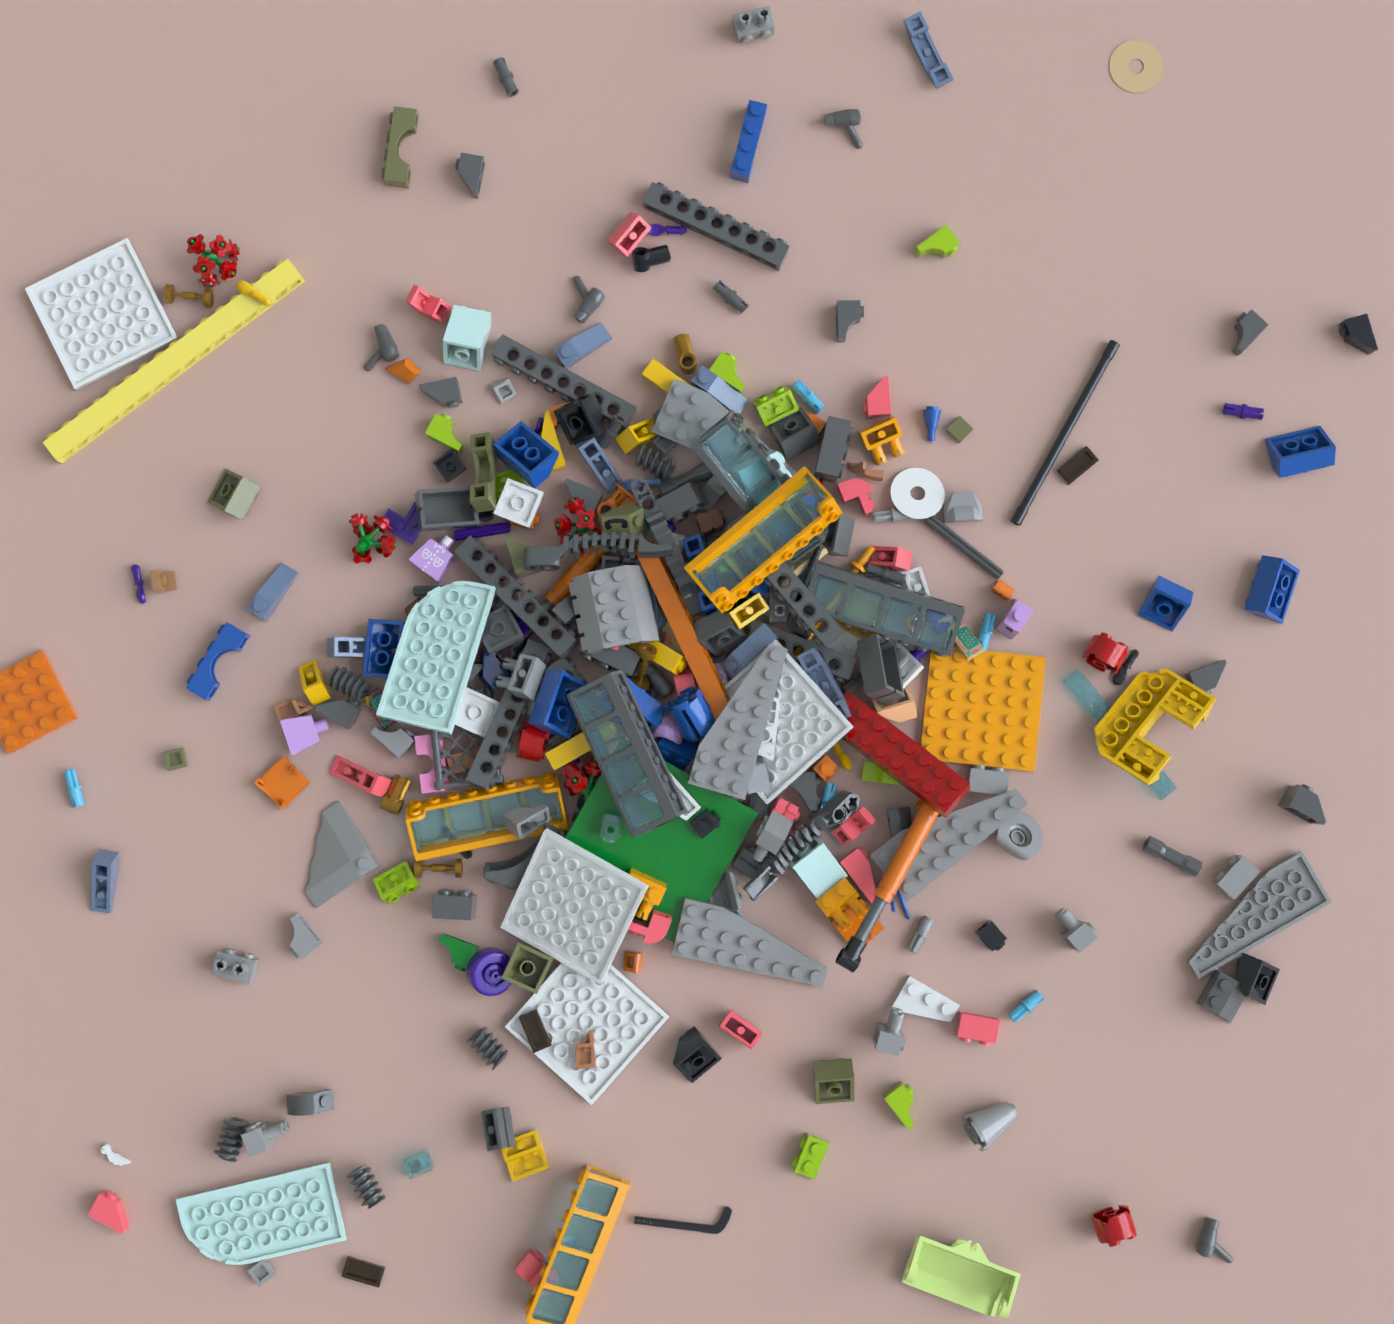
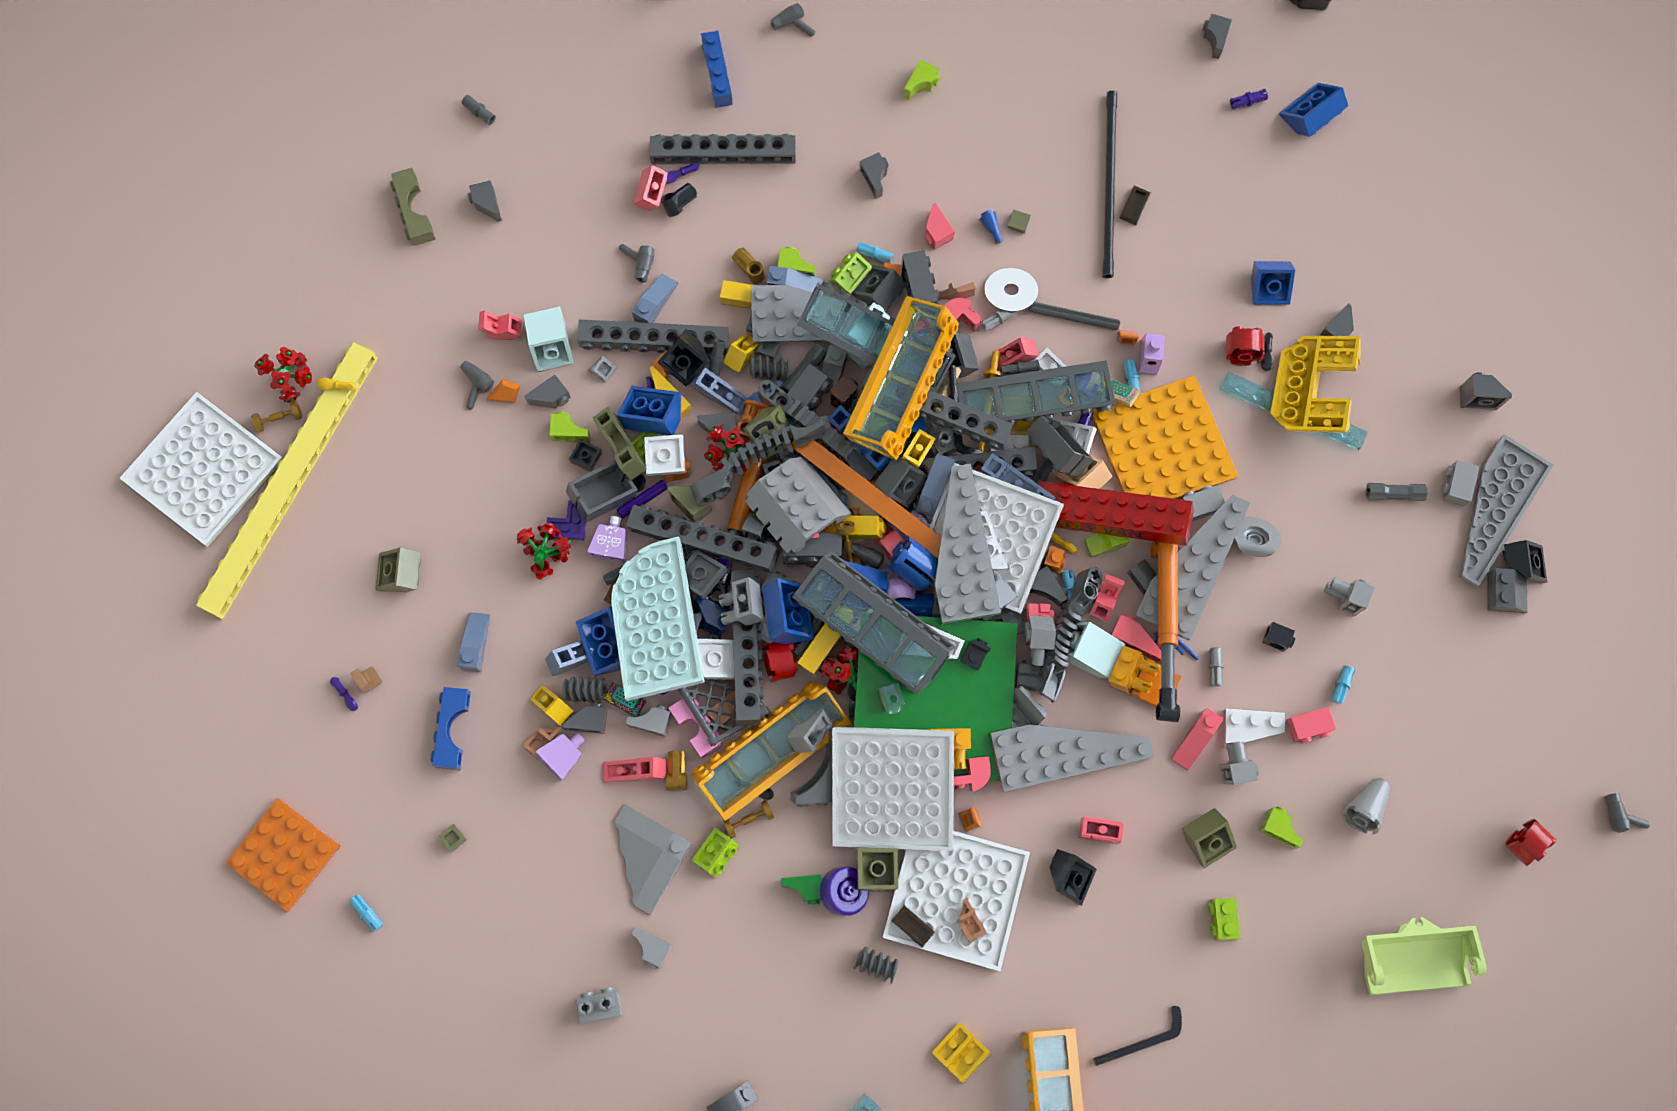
camera: 25 degrees left, 10 degrees down
(103, 880) = (434, 986): sand blue slope -> none
(282, 782) = (564, 811): orange piece -> none
(454, 906) = (781, 844): dark grey brick -> none
(498, 1128) = (924, 1036): dark grey brick -> none
(730, 296) = (765, 201): dark grey pin -> none
(869, 990) = (1197, 738): none -> coral slope
(879, 433) = (957, 249): light orange brick -> none
(962, 508) = (1056, 284): light grey slope -> none
(1272, 589) = (1353, 229): blue slope -> none

